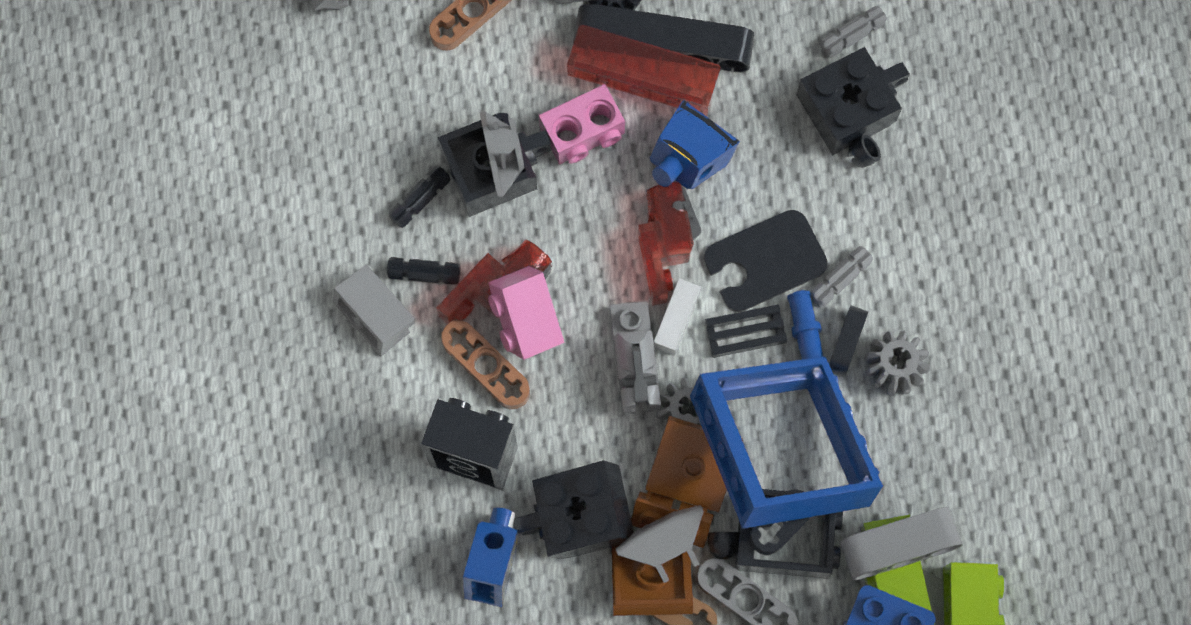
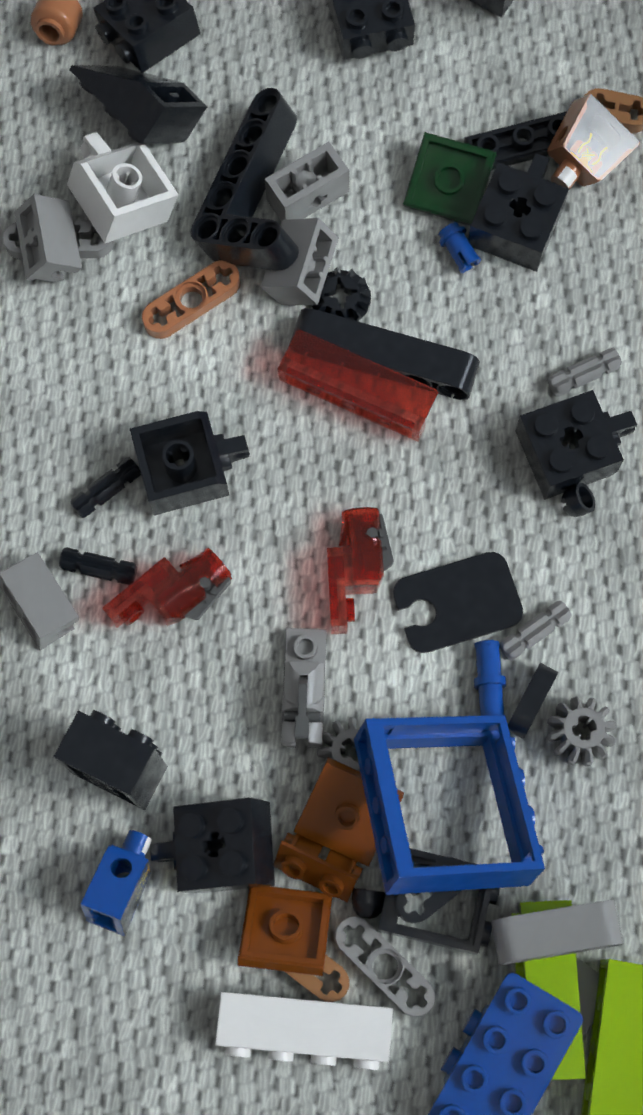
camera: 10 degrees right, 0 degrees up
(472, 338) = (121, 657): nougat beam -> none
(503, 151) = (193, 452): light grey piece -> none
(525, 313) = (193, 626): bright pink brick -> none
(577, 117) = (281, 425): bright pink brick -> none
(664, 539) = (302, 892): light grey piece -> none
(677, 316) = (355, 650): white piece -> none
(691, 149) = (394, 474): blue torso -> none
(776, 323) = (424, 659): black tile -> none

